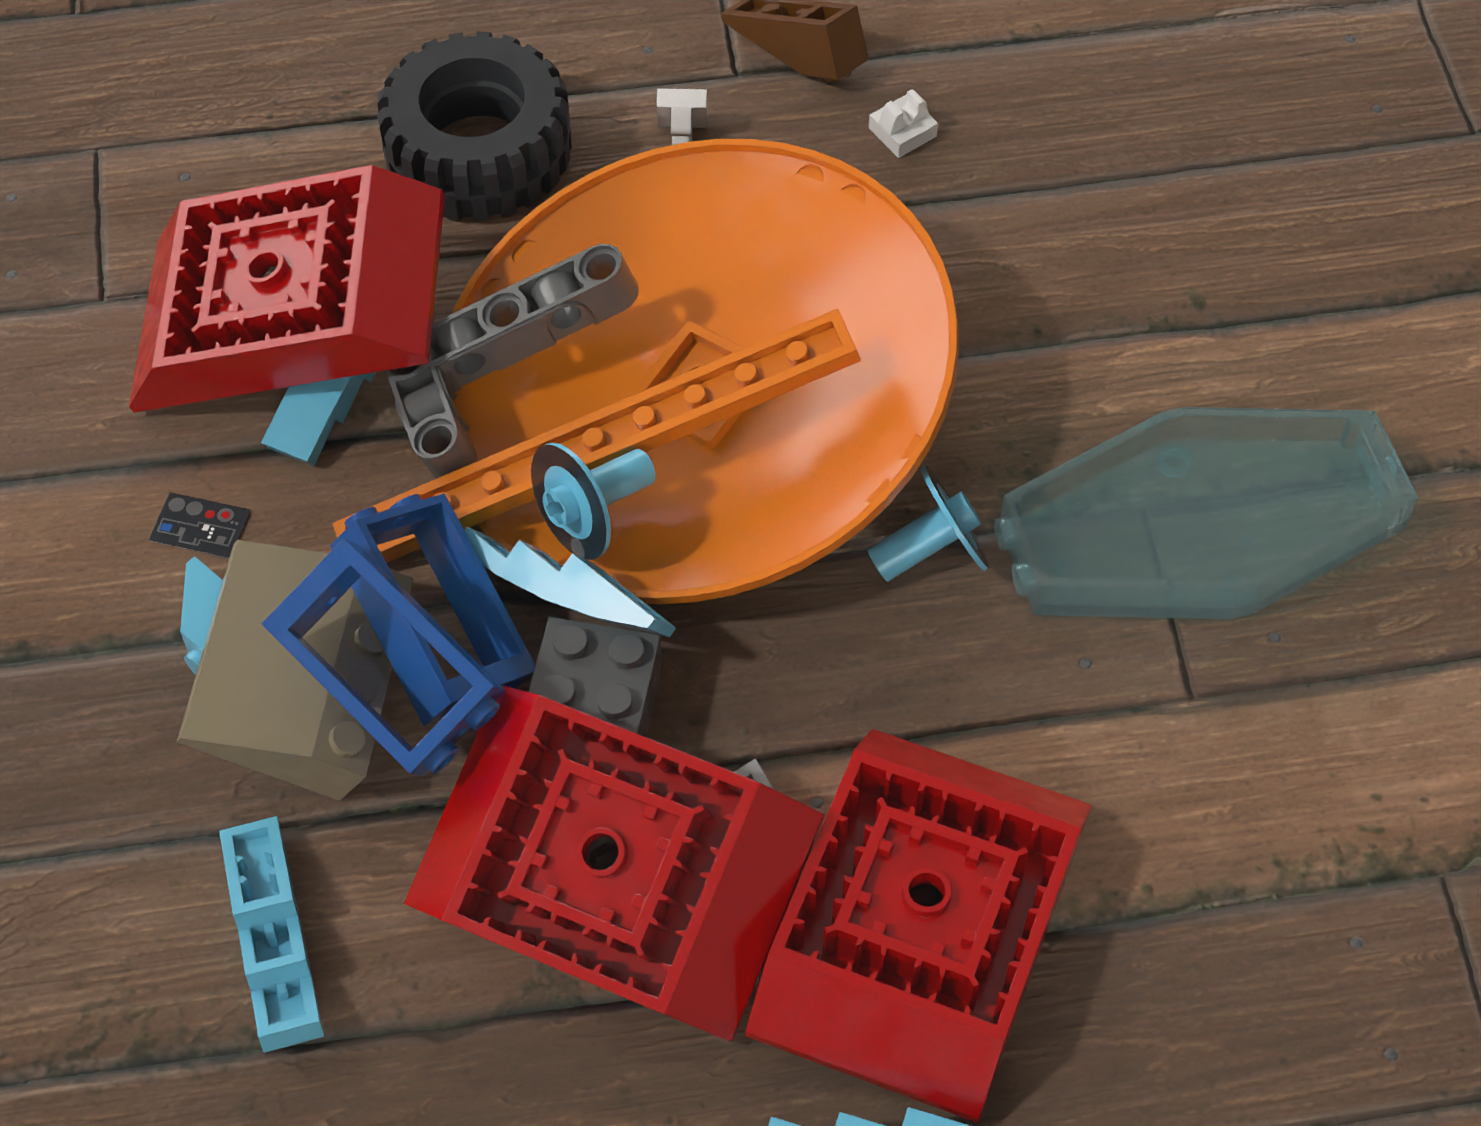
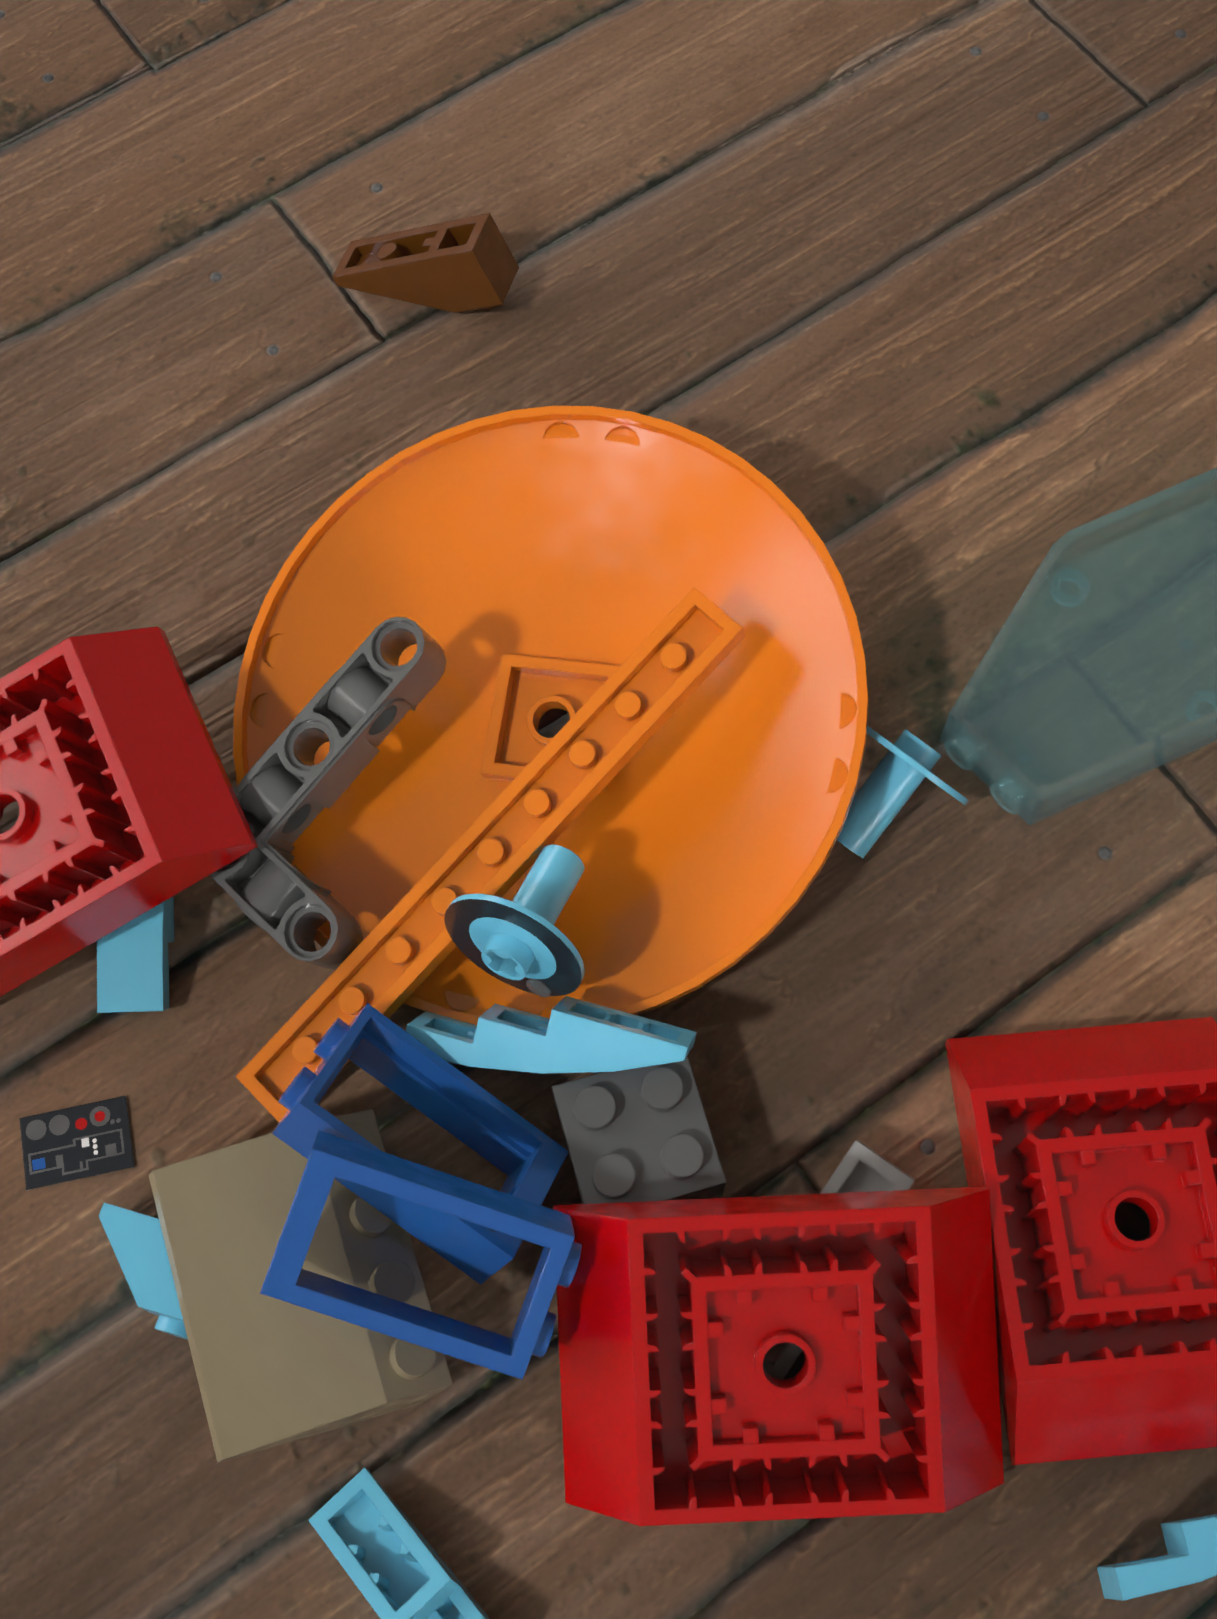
camera: 25 degrees left, 10 degrees up
(477, 79) = (118, 462): black tyre -> none
(682, 112) = (356, 409): white tile -> none
(904, 124) = (592, 325): white tile -> none

